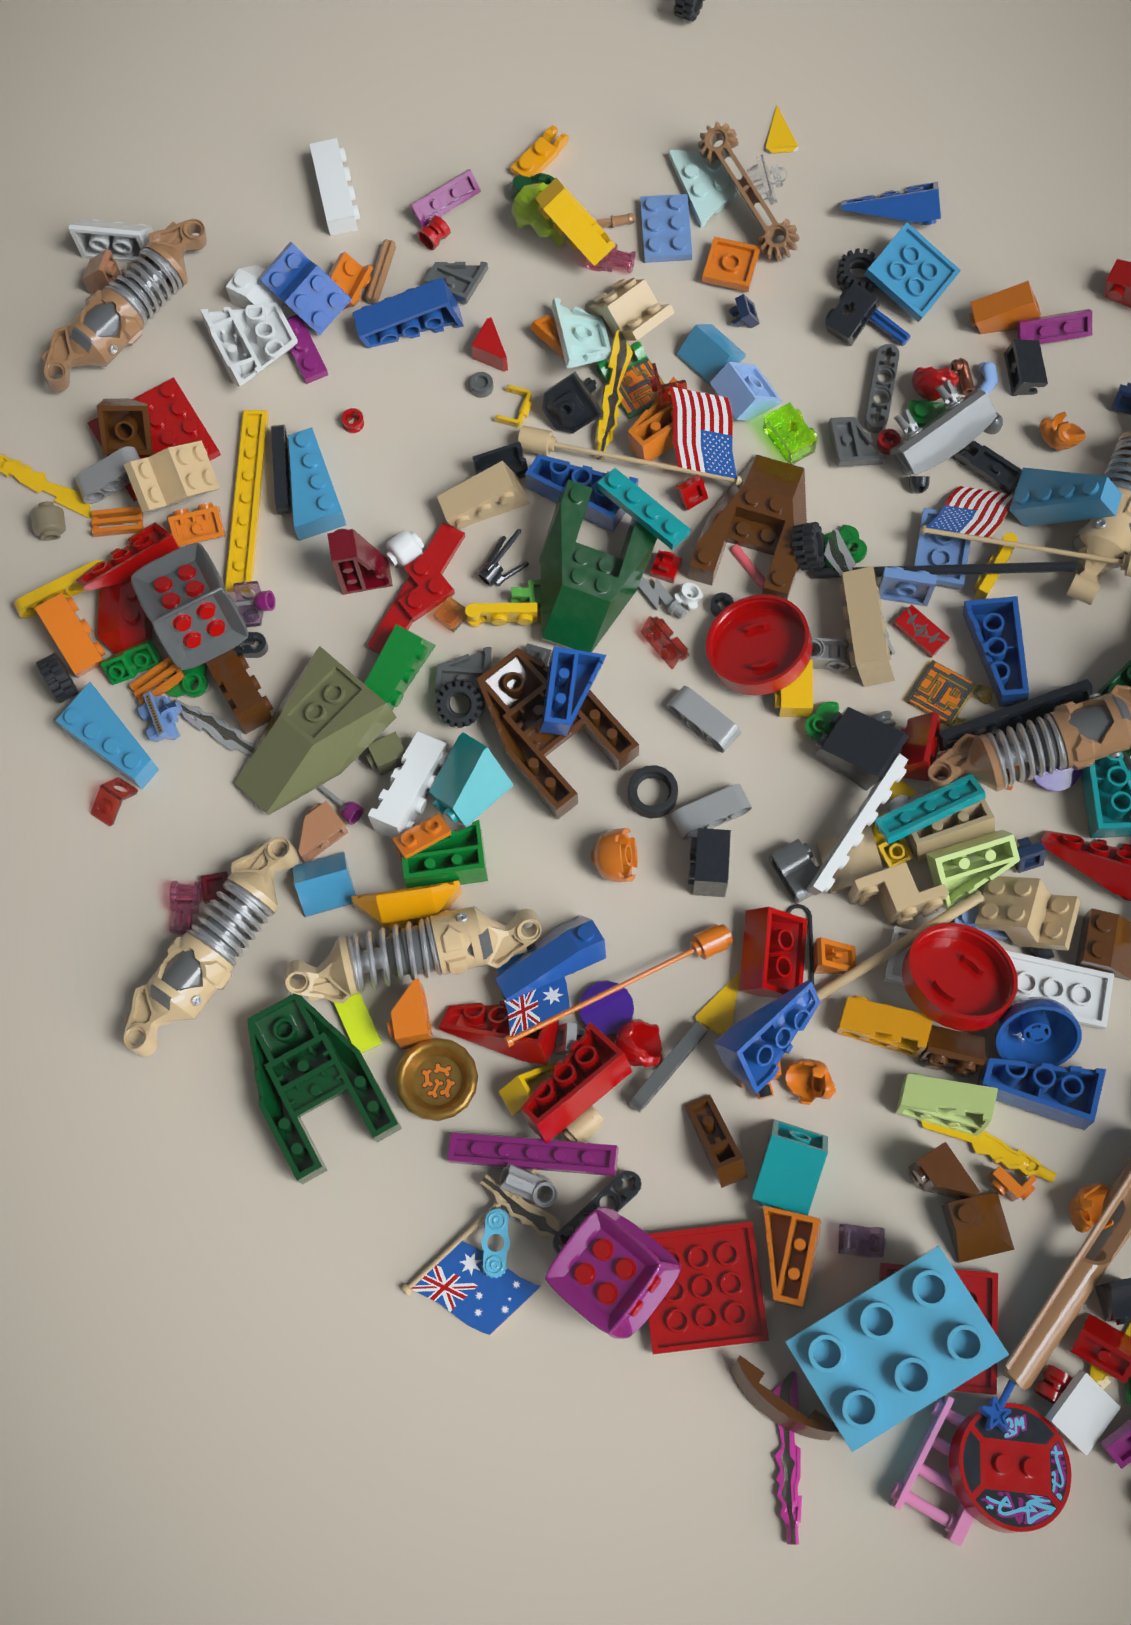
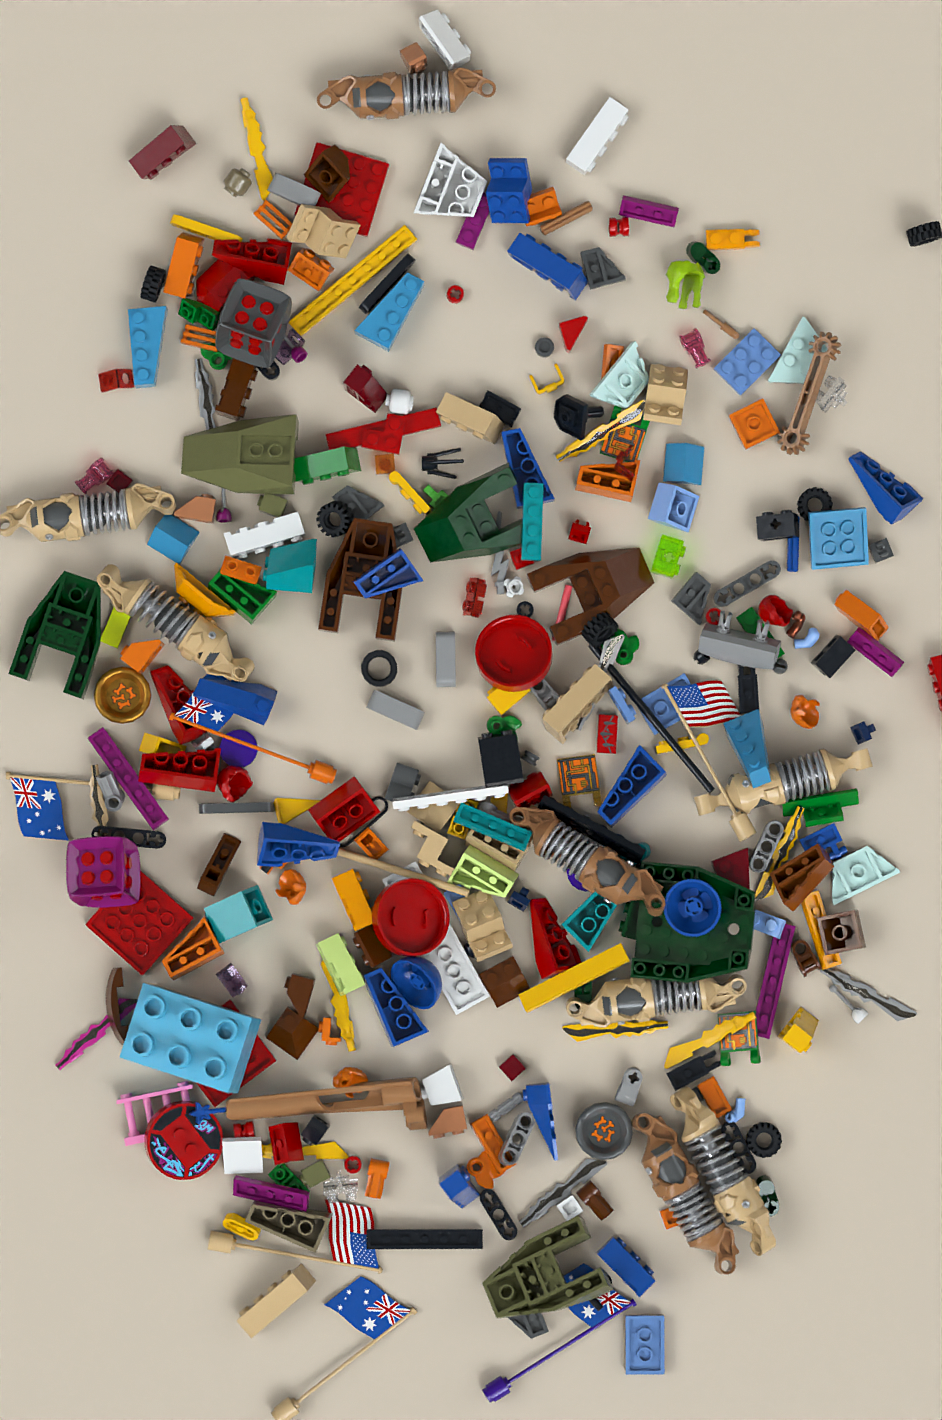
camera: 40 degrees right, 15 degrees up
(163, 714) = (184, 362): medium blue hips -> none
(248, 290) = (485, 149): white slope -> none
(495, 1262) = (78, 791): medium azure piece -> none
(574, 221) = (688, 315): yellow wedge -> none
(615, 855) = (324, 680): orange cylinder -> none
(699, 436) = (613, 509): flag -> none
(711, 862) = (362, 735): black brick -> none
(746, 311) = (728, 461): dark blue tile -> none
(780, 137) = (875, 374): yellow sticker -> none
(956, 251) = (880, 550): none -> dark grey tile

